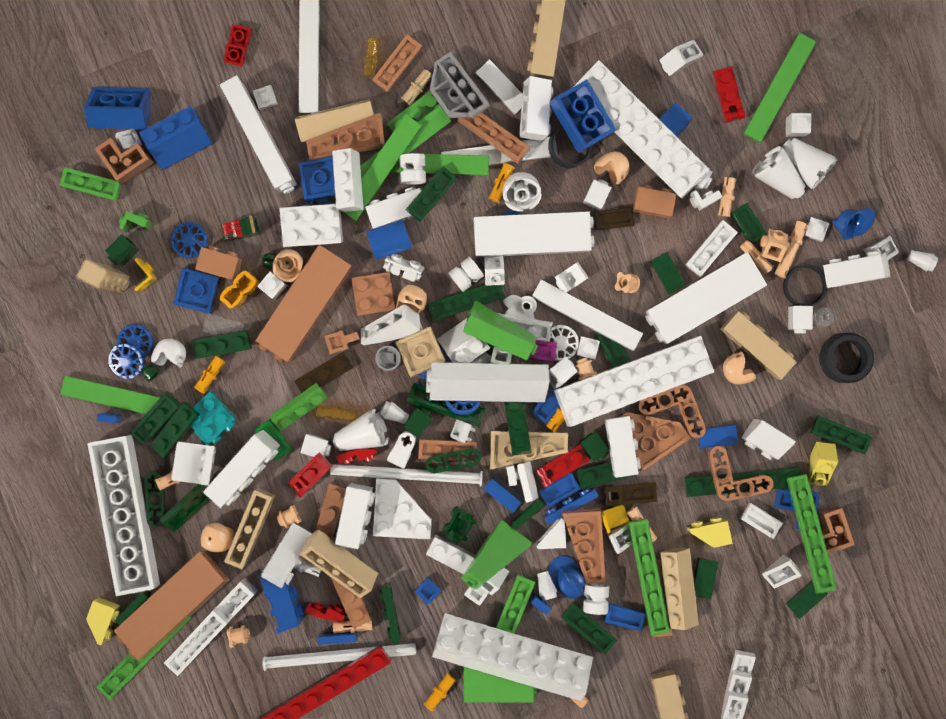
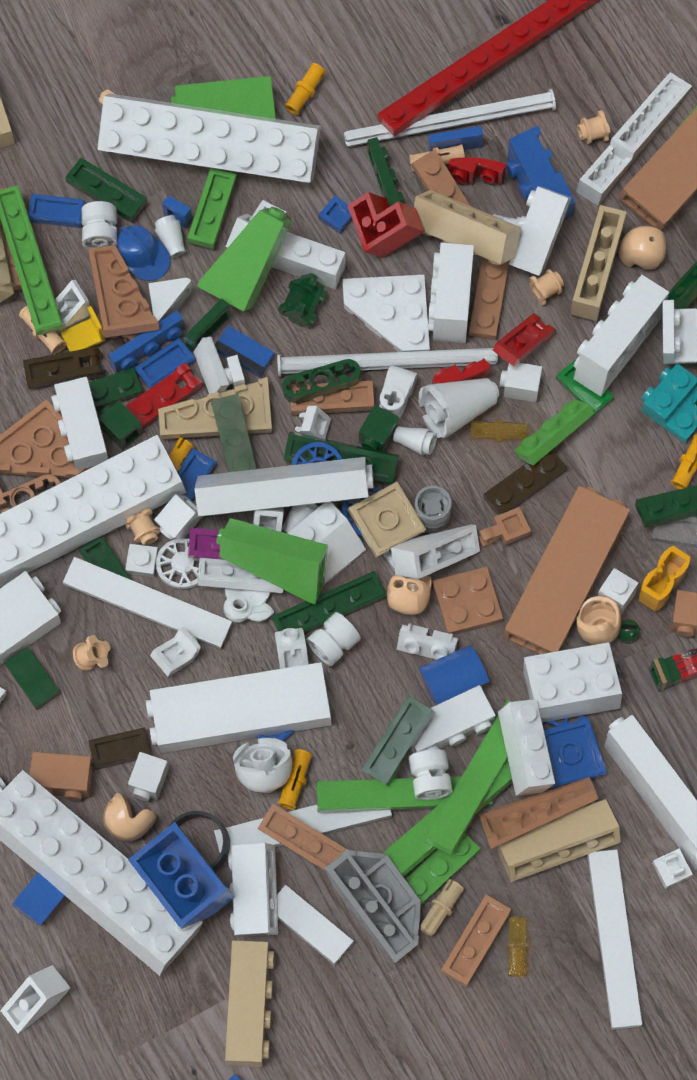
camera: 175 degrees right, 20 degrees down
(398, 571) = (383, 227): none -> red brick

